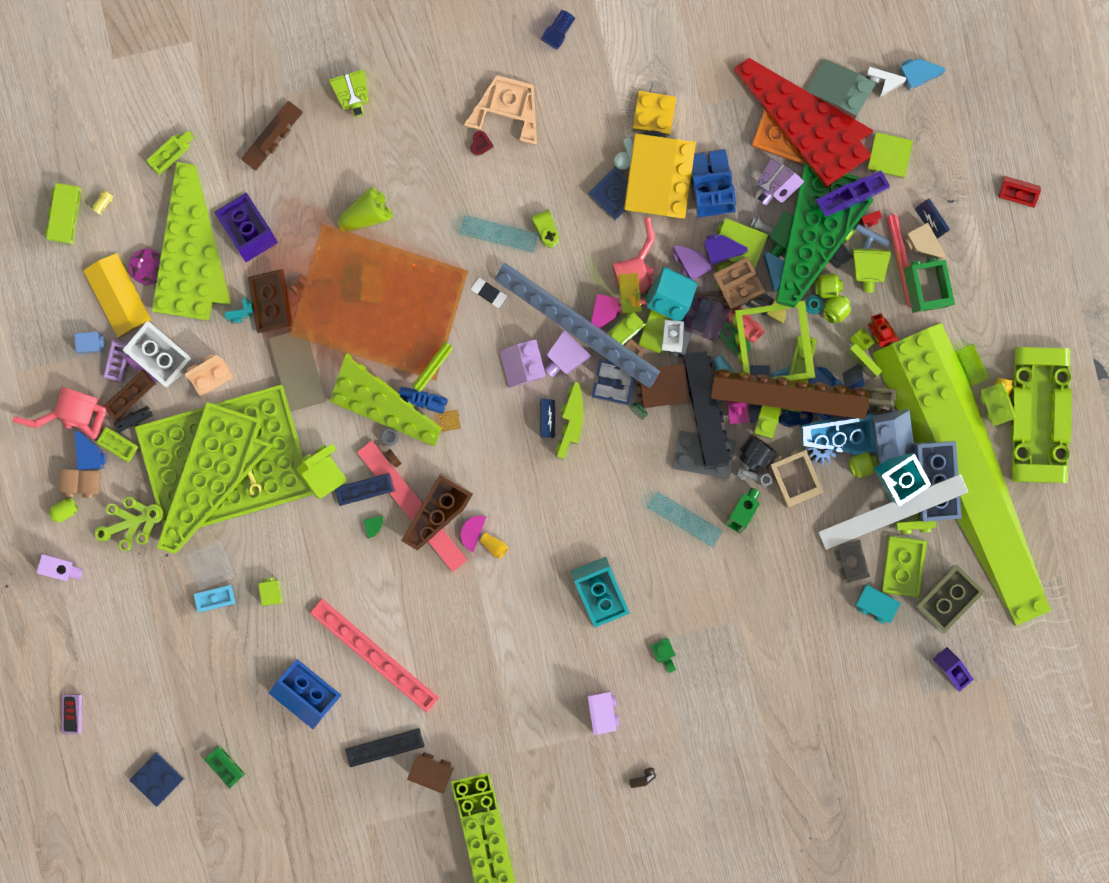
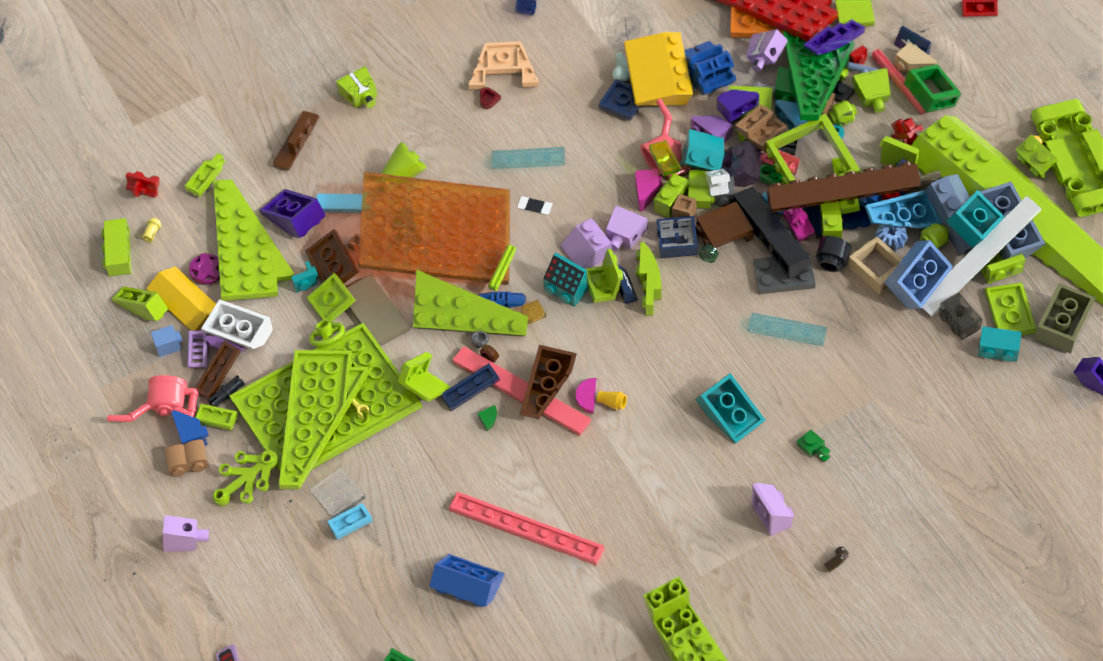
camera: 15 degrees left, 30 degrees down
(63, 510) = (176, 485): lime brick -> none
(72, 289) = (141, 302): none -> lime slope
(102, 145) = (142, 185): none -> red hips
(208, 374) = (288, 332): light nougat bracket -> none
(243, 384) = (325, 330): none -> lime piece
(258, 346) = (331, 298): none -> lime tile
(270, 592) = (404, 499): lime brick -> none
(295, 228) = (340, 202): none -> medium azure tile
(384, 747) = (564, 608): black tile -> none
(431, 772) = (619, 612): reddish brown slope -> none
(488, 402) = (565, 280): none -> slope
(526, 411) = (605, 280): none -> lime bracket
(545, 225) = (571, 140): lime piece -> none
(577, 325) = (626, 198): sand blue plate -> none
(654, 112) = (632, 30): yellow plate -> none
(740, 516) = (840, 295): green torso -> none
(764, 480) = (849, 276): light grey bar -> none
(778, 315) = (805, 147): light yellow tile -> none
(828, 510) = (918, 274): none -> medium blue brick
(836, 309) = (857, 128): lime head -> none
(972, 364) = (998, 139): clear neon green tile -> none

